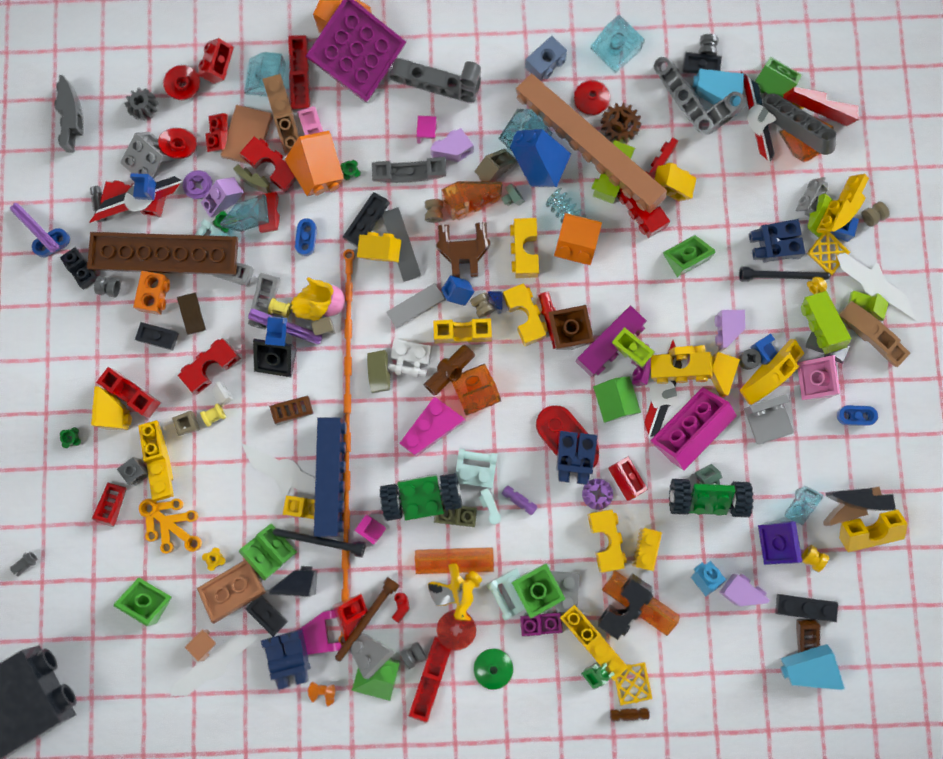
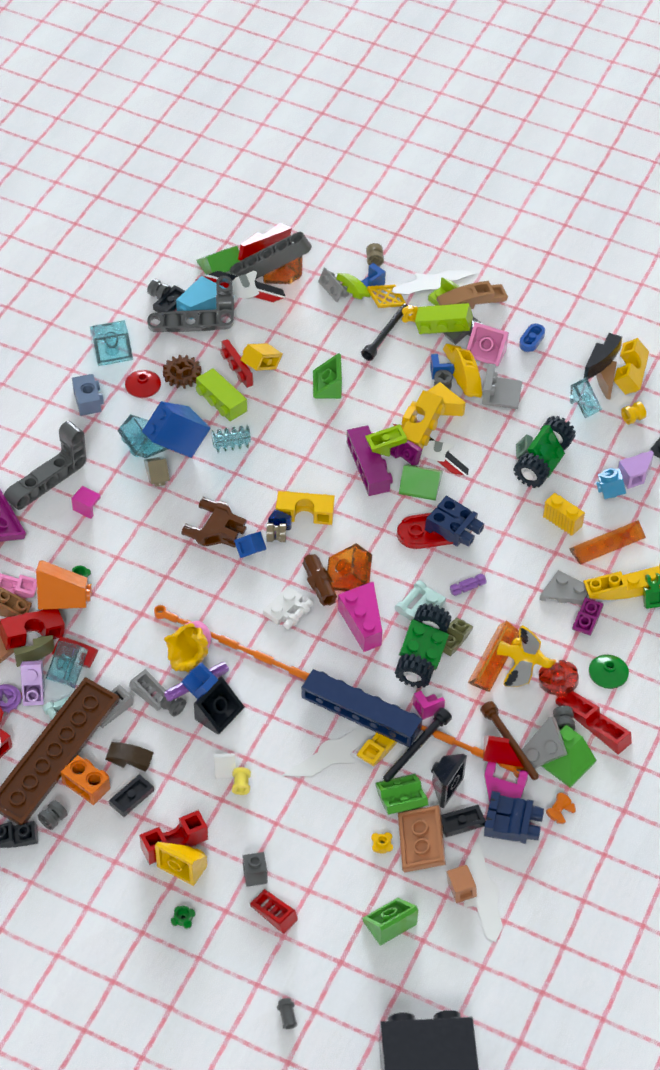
camera: 65 degrees left, 30 degrees down
(157, 460) = (245, 842): yellow slope -> none
(167, 523) = (324, 867): light orange plant -> none
(186, 423) = (234, 806): dark tan slope -> none
(194, 374) = (193, 777): red arch -> none
(218, 220) = (54, 689): green plate -> none
(274, 410) = (273, 730): reddish brown slope -> none
(279, 308) = (173, 681): light yellow bush -> none
(305, 238) = (121, 634): blue plate -> none
(322, 326) = (215, 654): dark tan slope -> none
(366, 218) = (137, 582): black plate -> none
(378, 371) = (285, 632): olive slope -> none
(379, 247) = (173, 577): yellow brick -> none
(402, 607) = (514, 711): red arm -> none
(407, 260) = (178, 565): dark grey slope -> none
(409, 171) = (116, 531): dark grey slope -> none
(415, 305) = (242, 583): light grey tile -> none
(434, 211) = (165, 529): dark tan wheel -> none
(453, 147) = (117, 490): lavender slope -> none
(453, 332) = (287, 561): yellow arch -> none
(469, 196) = (173, 495): clear orange slope -> none
(487, 501) = (456, 596): light aqua plate -> none
(506, 579) = (549, 623): light aqua plate -> none
(512, 196) = (192, 468): sand green tile -> none
(525, 264) = (258, 488): yellow arch -> none
(538, 590) = (556, 597): bright green slope -> none
(547, 306) = (340, 496): red pin -> none
(571, 327) = (340, 475): reddish brown slope -> none
(578, 239) = (265, 438): orange slope -> none
(589, 498) = (496, 535): medium lavender gear -> none
(591, 144) = (189, 390): nougat brick -> none
(611, 557) = (527, 532): yellow arch -> none
(617, 621) = (599, 531): black arch -> none
(627, 478) = (494, 504): red slope -> none
(648, 222) = (279, 392): red arch -> none
(694, 428) = (478, 439): dark pink slope -> none
(730, 326) = (407, 380): lavender slope -> none
(778, 241) = (356, 321): dark blue hips -> none
(780, 543) = (608, 425): dark purple bracket -> none
(845, 208) = (355, 264): yellow slope -> none

